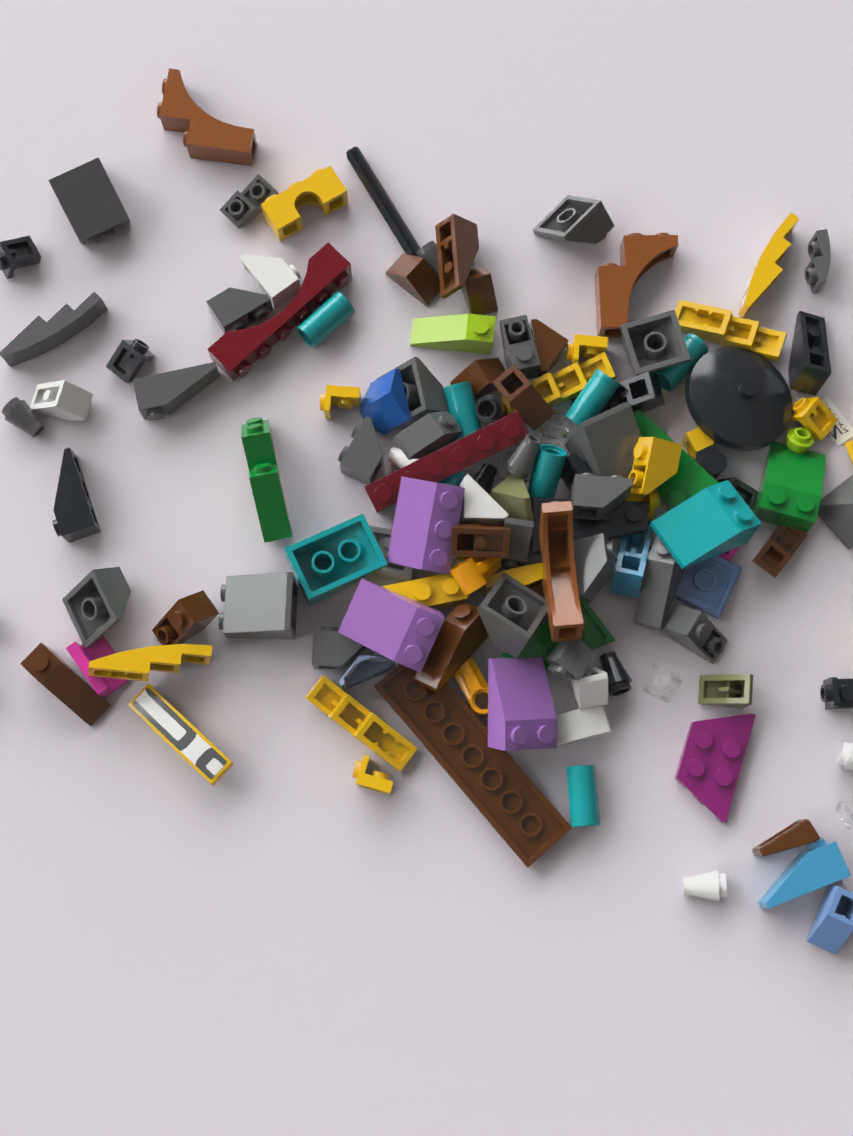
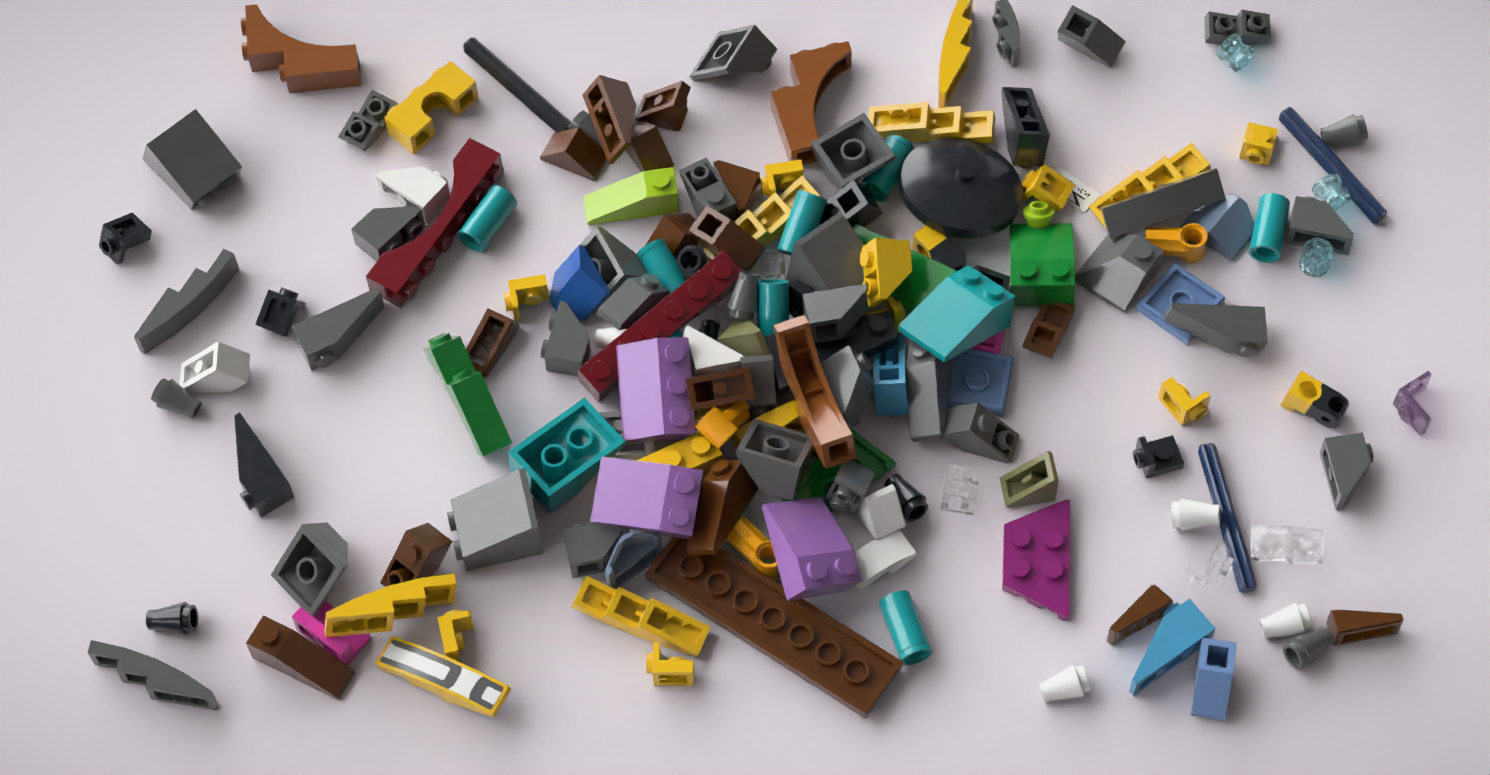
camera: 10 degrees left, 15 degrees down
(195, 702) = (451, 627): none -> yellow bracket
(304, 441) = (504, 338): none -> reddish brown slope
(503, 254) = (665, 106): none -> reddish brown slope

